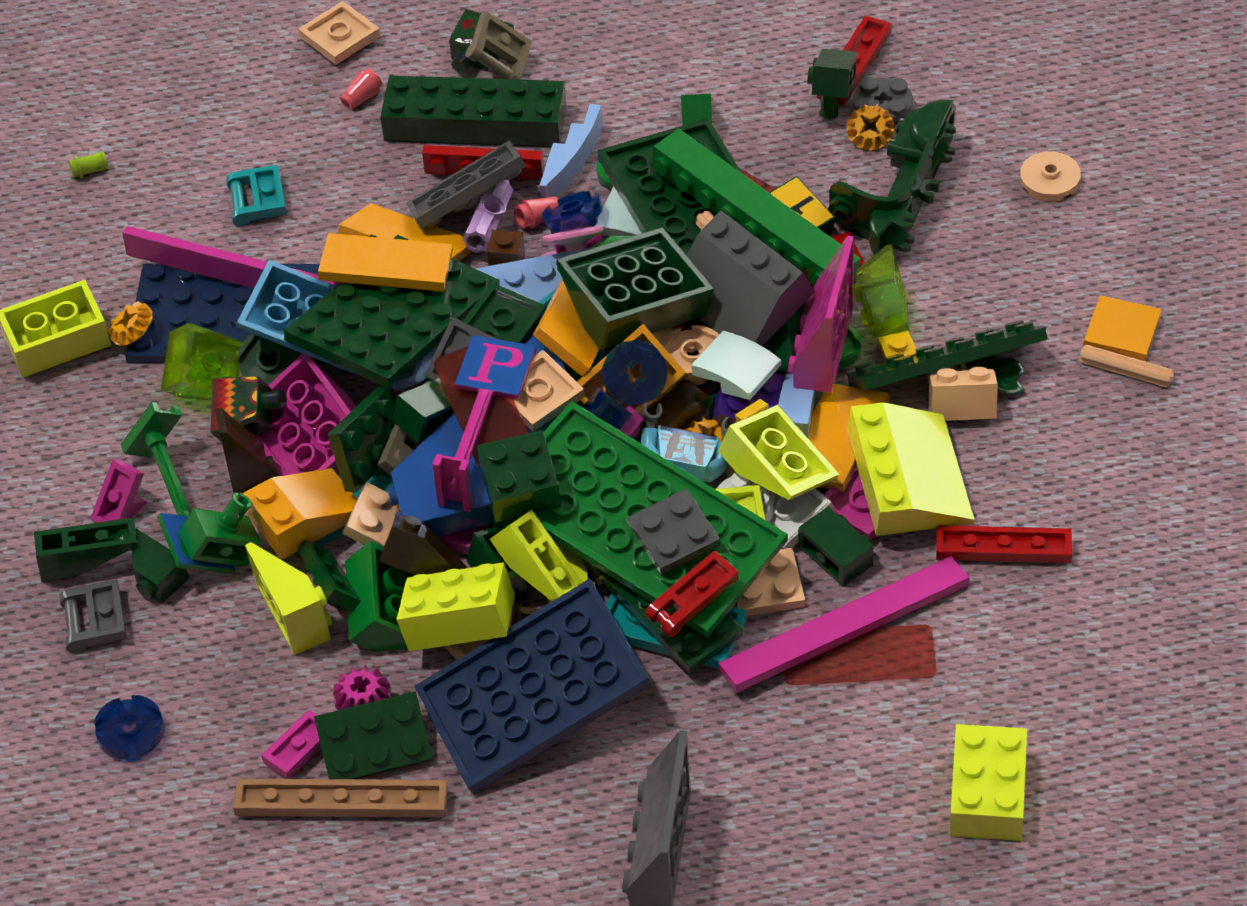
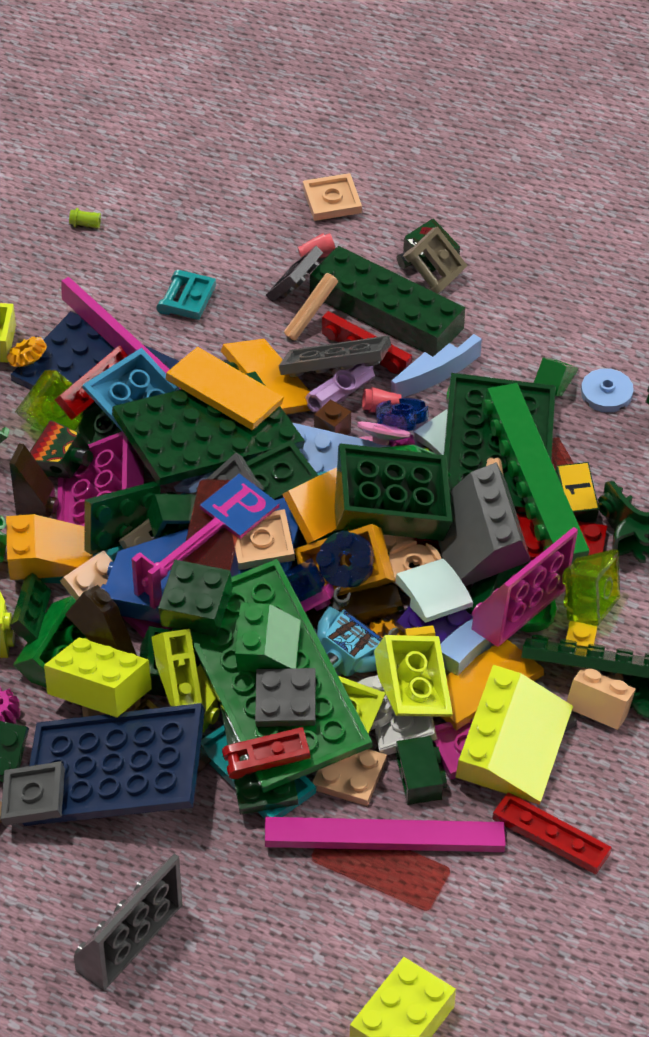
camera: 25 degrees right, 0 degrees up
(230, 341) = (75, 399): none -> red plate
(361, 124) = (295, 274): none -> black plate
(402, 148) = (310, 306): none -> light nougat axle
(468, 753) = (32, 793): none -> dark grey plate
(616, 482) = (266, 638): none -> green slope
(754, 103) = (607, 390): none -> light blue plate

